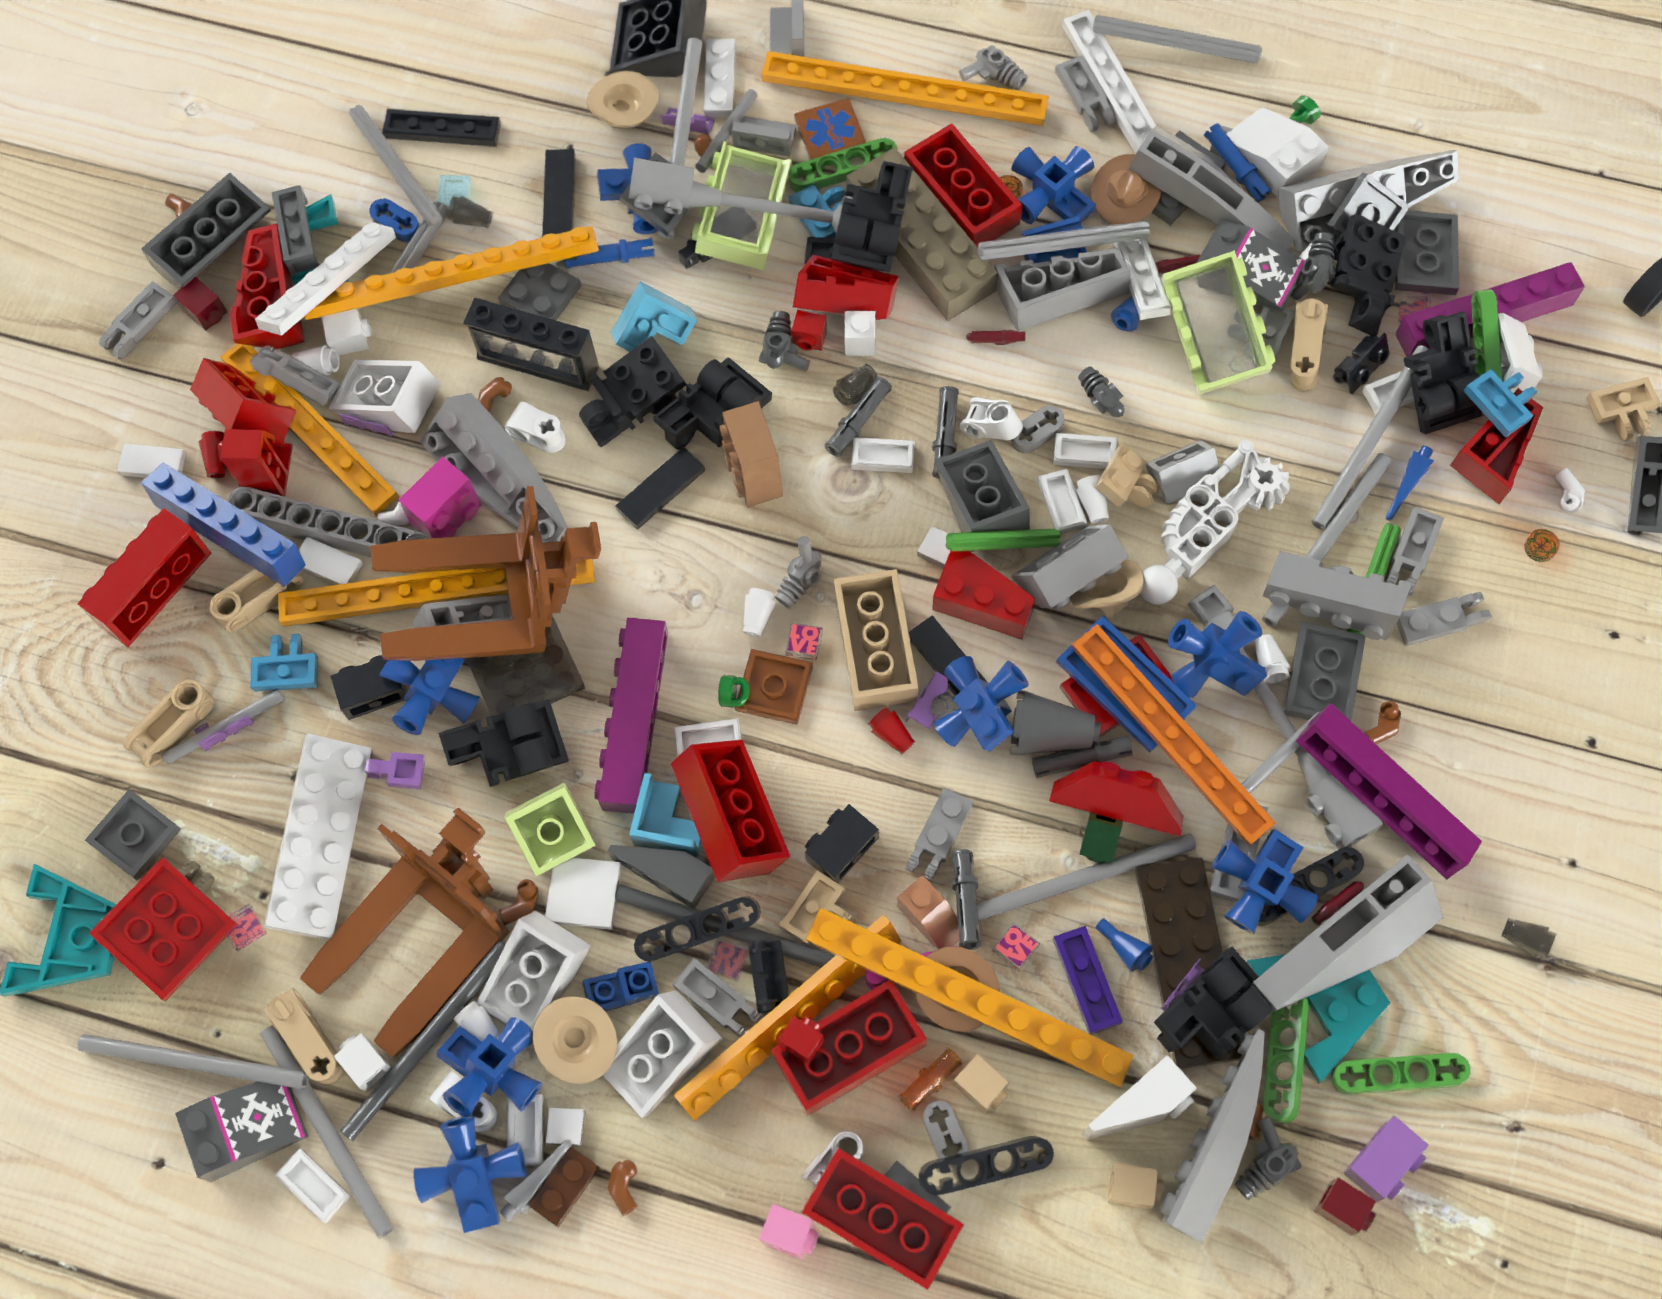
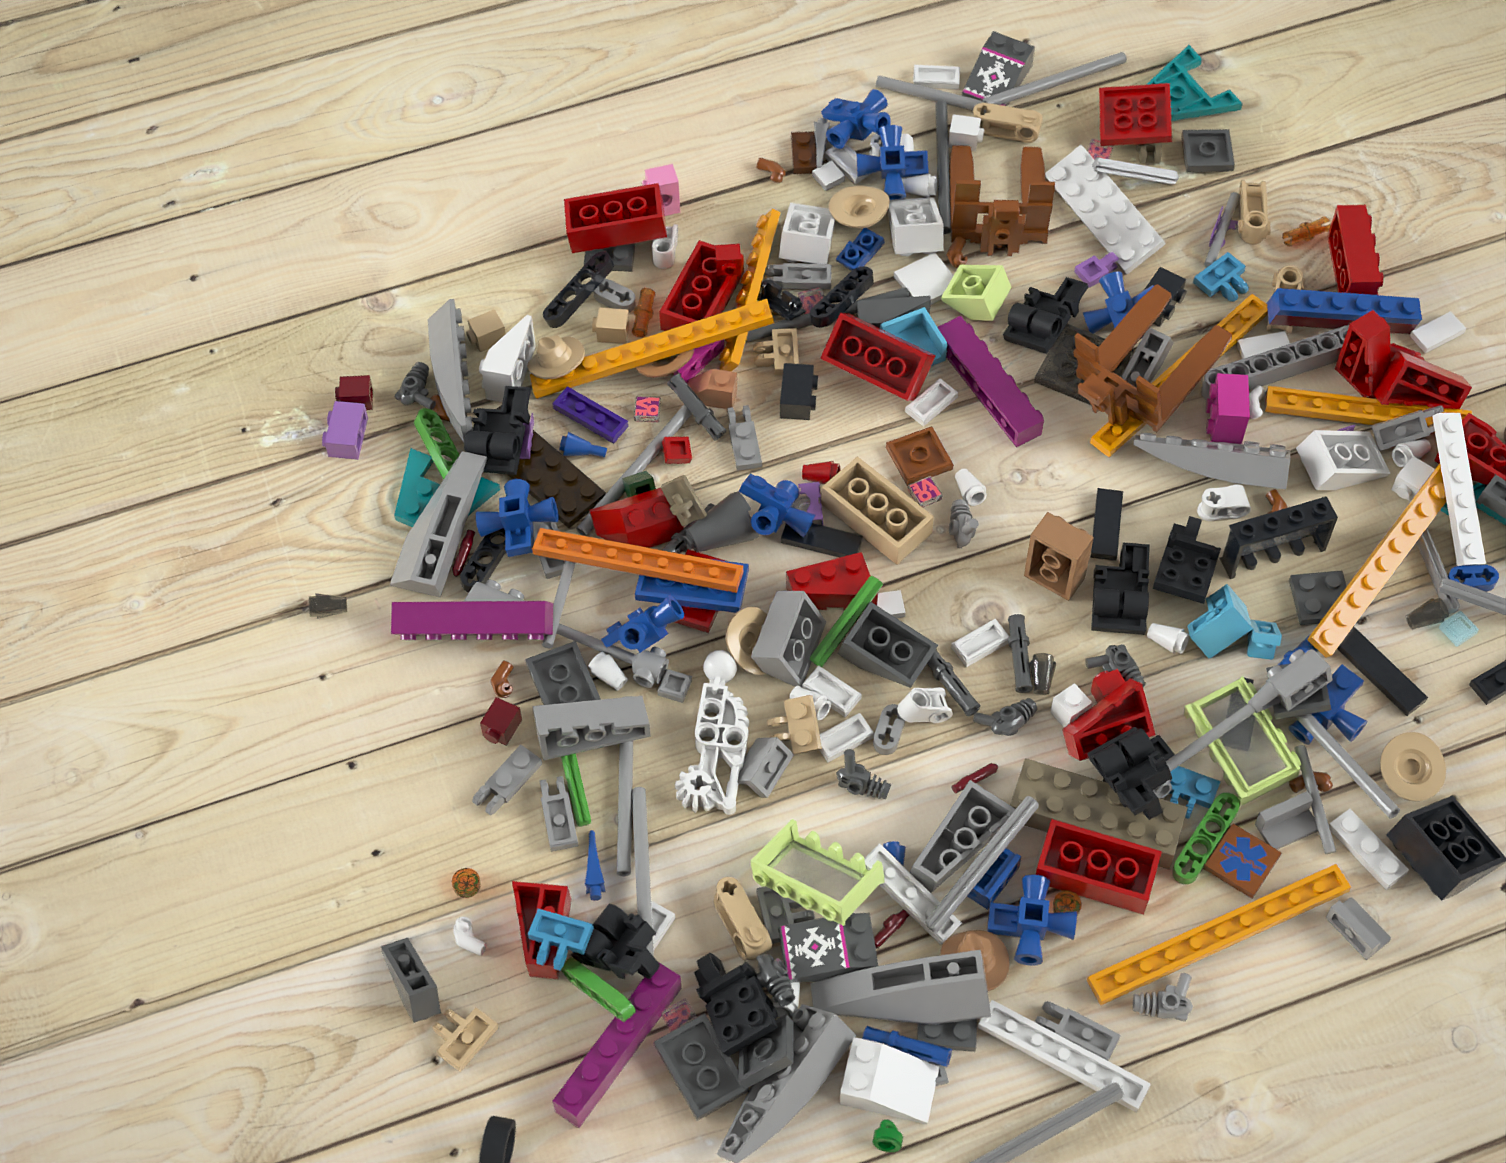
camera: 140 degrees right, 10 degrees down
(146, 658) = (1306, 231): none -> clear orange pin
(242, 850) = (1135, 171): none -> axle
(626, 278) = (1263, 639): none -> medium azure slope
(698, 122) = (1351, 801): medium lavender piece -> none
(710, 339) = (1169, 637): none -> white cone
(728, 689) = (943, 428): green tile -> none
(925, 361) = (1009, 718): none -> dark grey piece
(1024, 864) = (677, 450): none -> red plate
(1080, 1077) = (556, 357): none -> tan hat
(1081, 756) = (683, 500): none -> dark tan hips
(1370, 353) = (690, 926): black hinge -> none
(1400, 1073) = (367, 486): bright green beam -> none
(1416, 675) = (500, 721): none -> dark red brick
(1517, 353) = (575, 1008): white slope -> none

